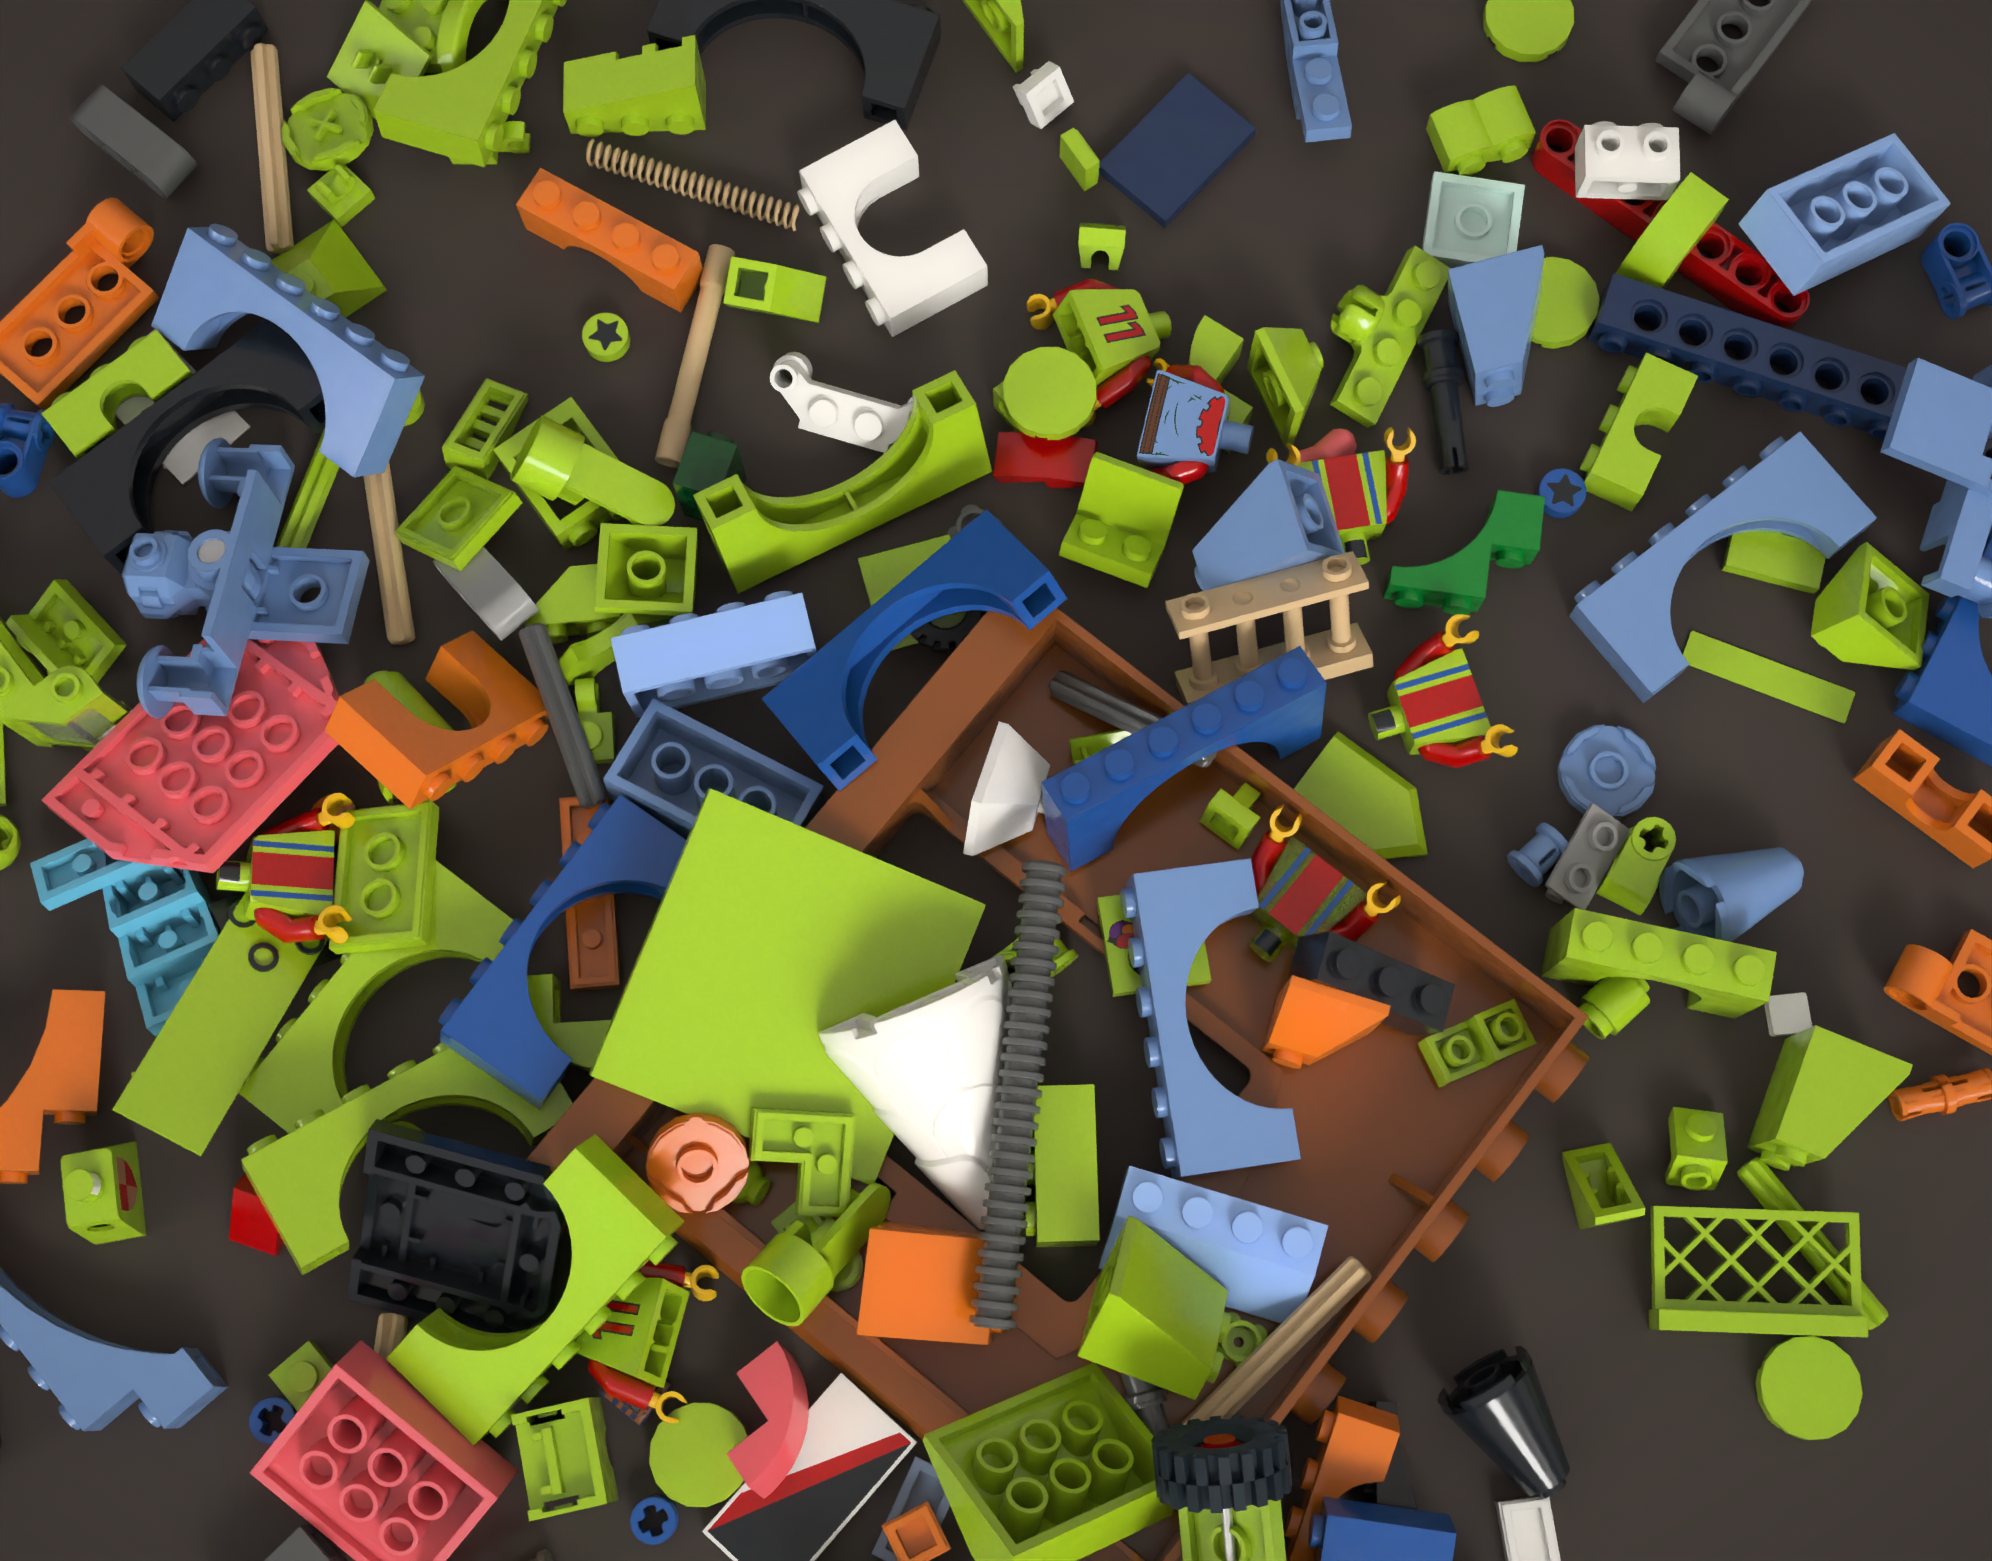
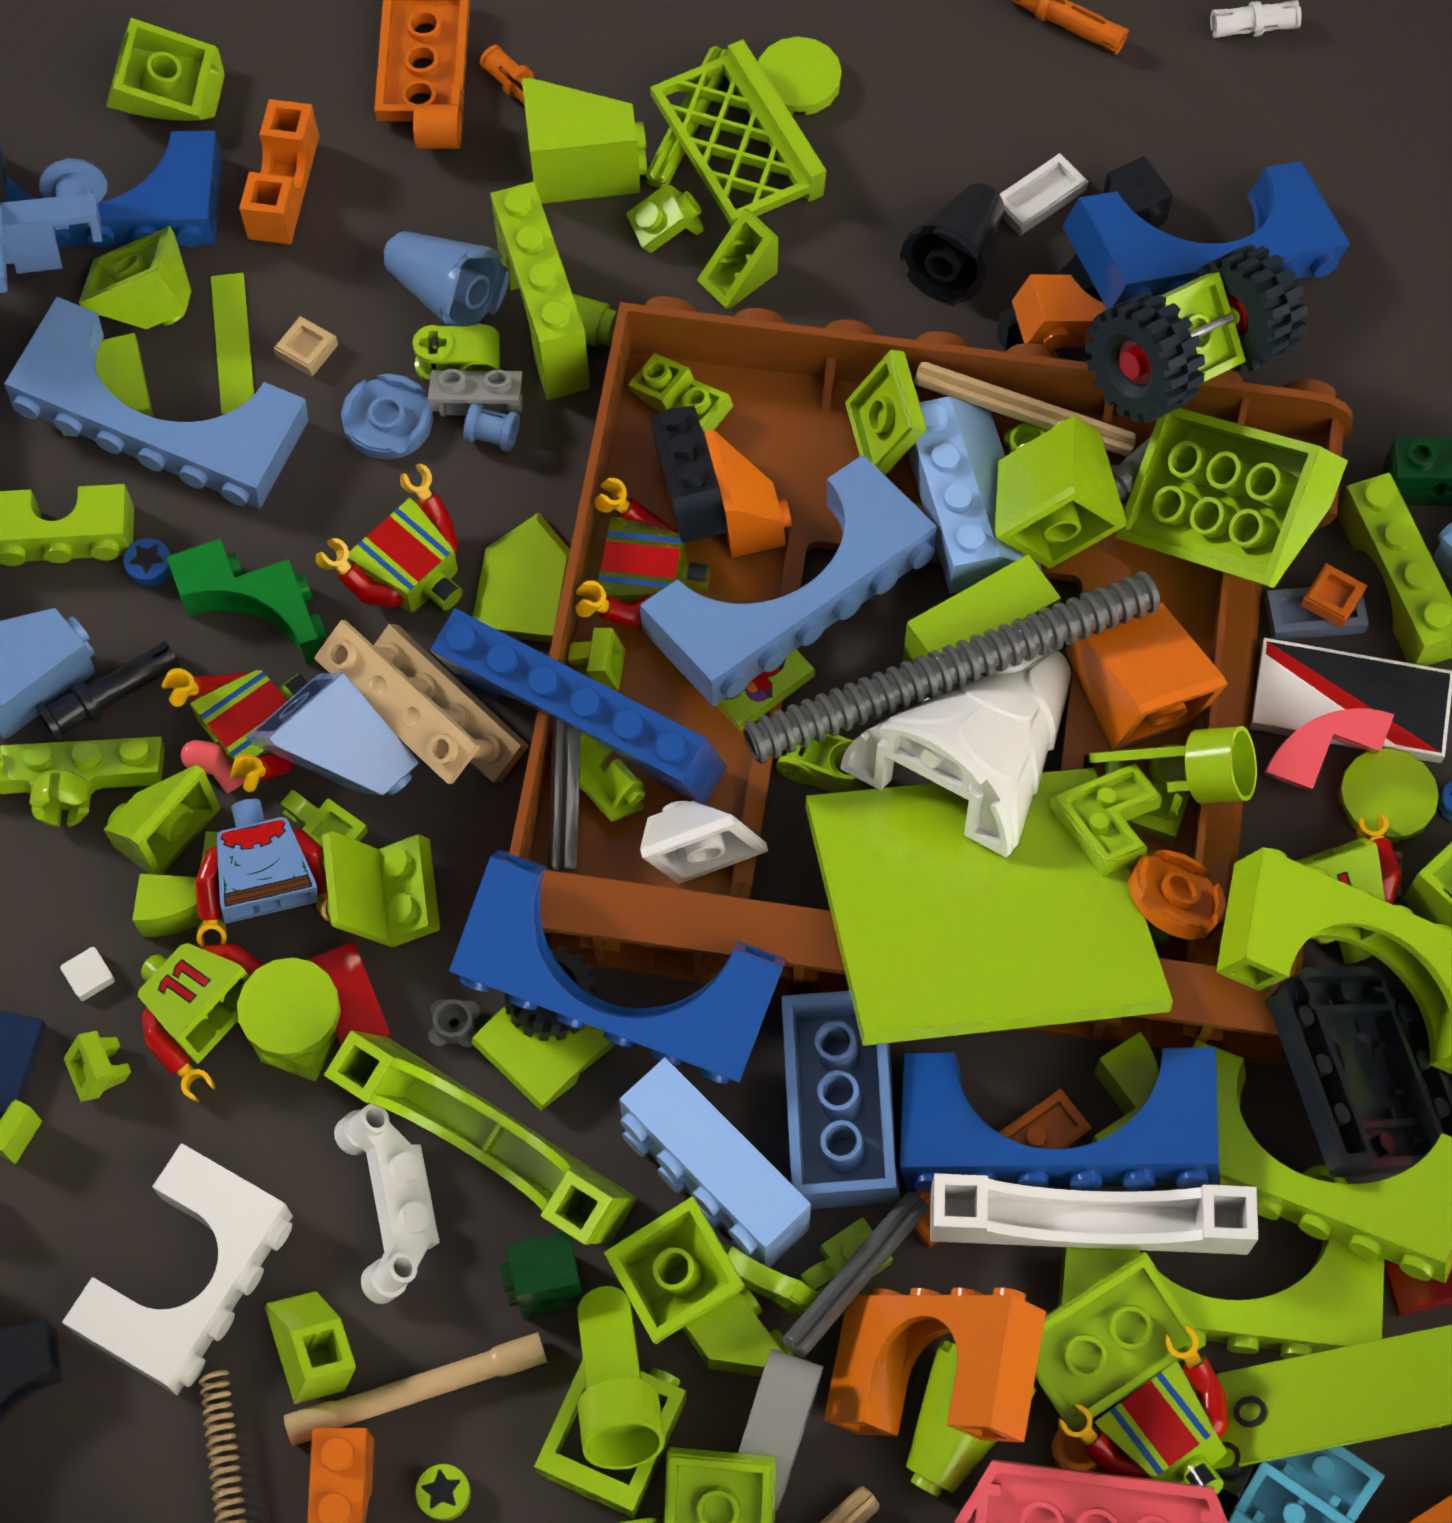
camera: 120 degrees left, 10 degrees down
(526, 847) = (1180, 1220): none -> white arch
(1190, 275) = (87, 974): none -> white piece
(1202, 510) = (322, 820): none -> lime plate
(1334, 1208) = (886, 412): none -> lime tile
(1725, 737) = (306, 346): none -> tan tile

